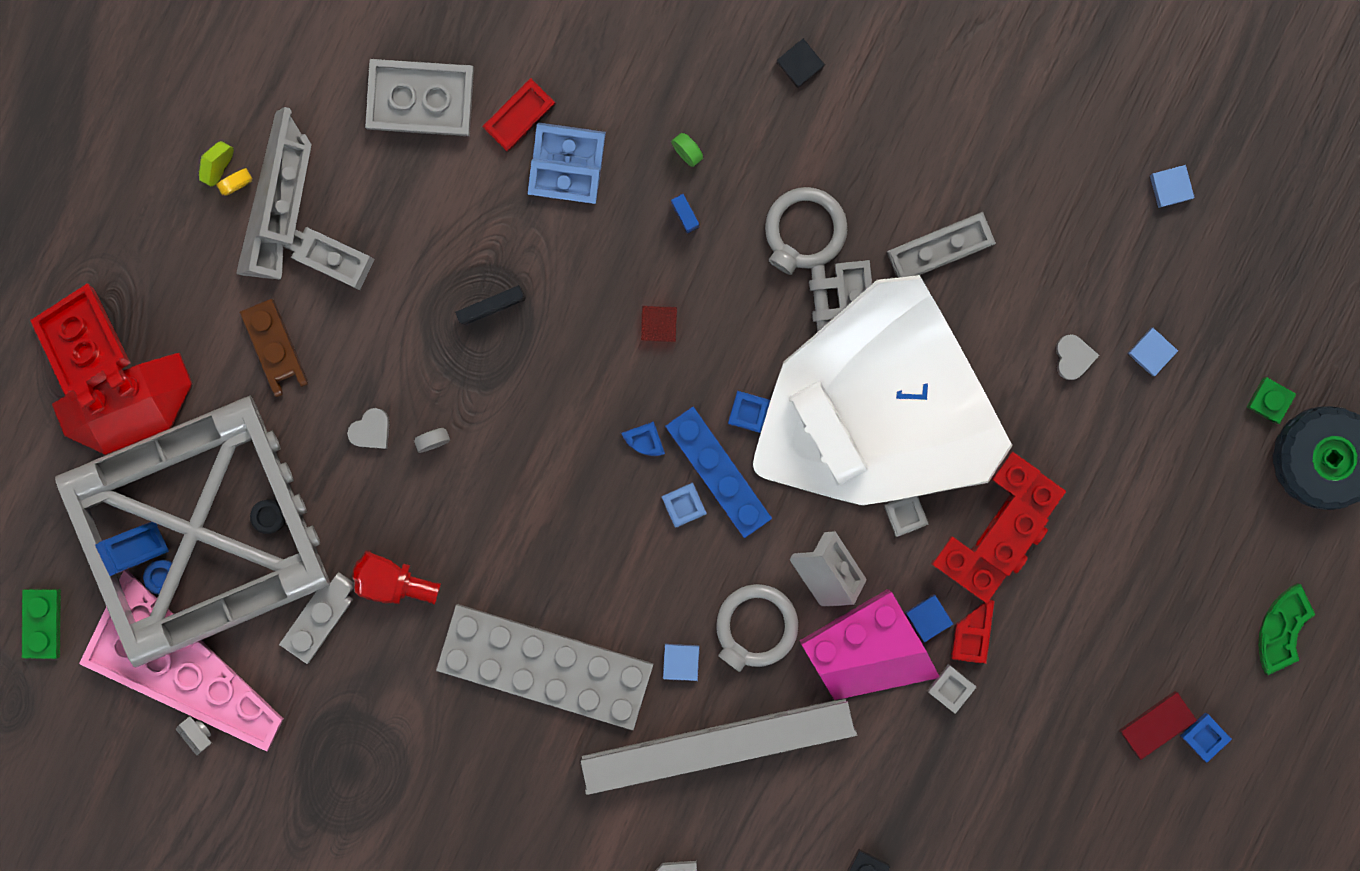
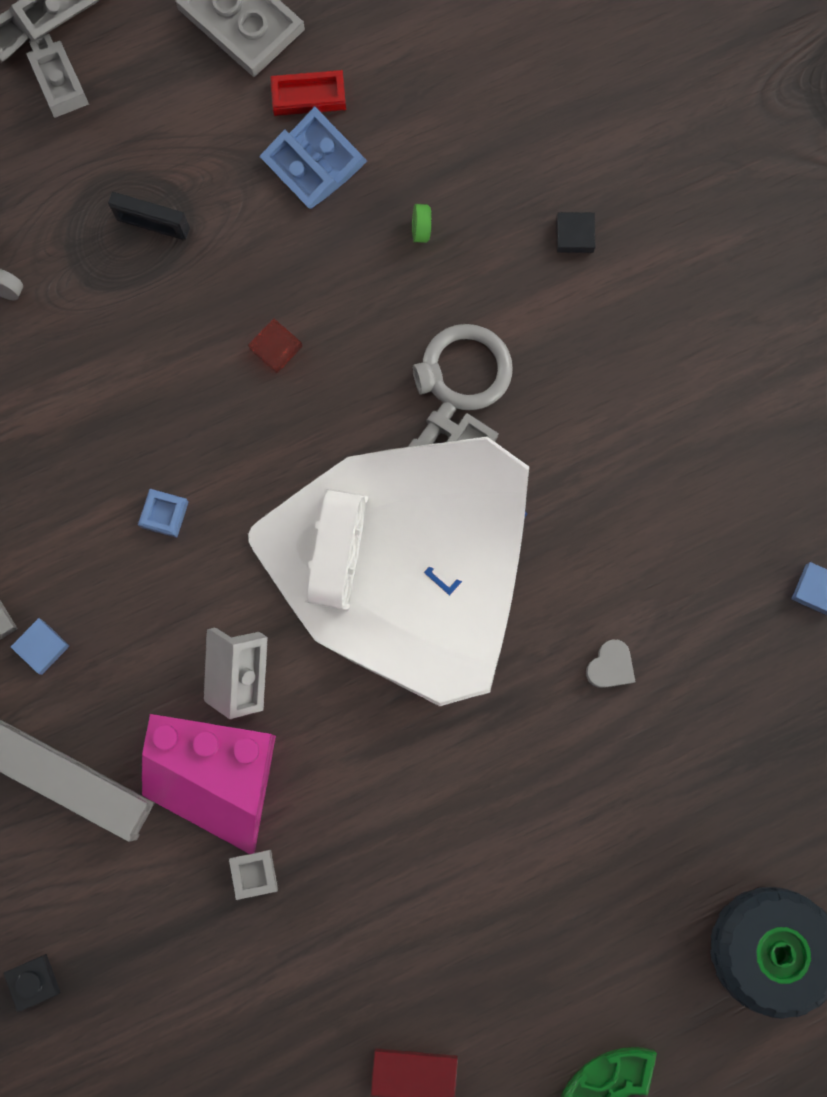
camera: 30 degrees right, 10 degrees down
(644, 440) = (179, 431): blue tile -> none
(685, 213) = (374, 271): blue tile -> none
(718, 472) = (216, 510): blue plate -> none
(734, 653) = (91, 680): light grey piece -> none
(749, 411) = (285, 478): blue tile -> none
(905, 515) = (346, 682): light grey tile -> none
(929, 618) = (288, 792): blue tile -> none
(941, 247) = (574, 477): light grey tile -> none
(973, 635) = (315, 842): red tile -> none
(1009, 533) = (422, 775): red bracket -> none
(1152, 352) = (686, 720): medium blue tile -> none
(1271, 400) = (762, 854): green plate -> none

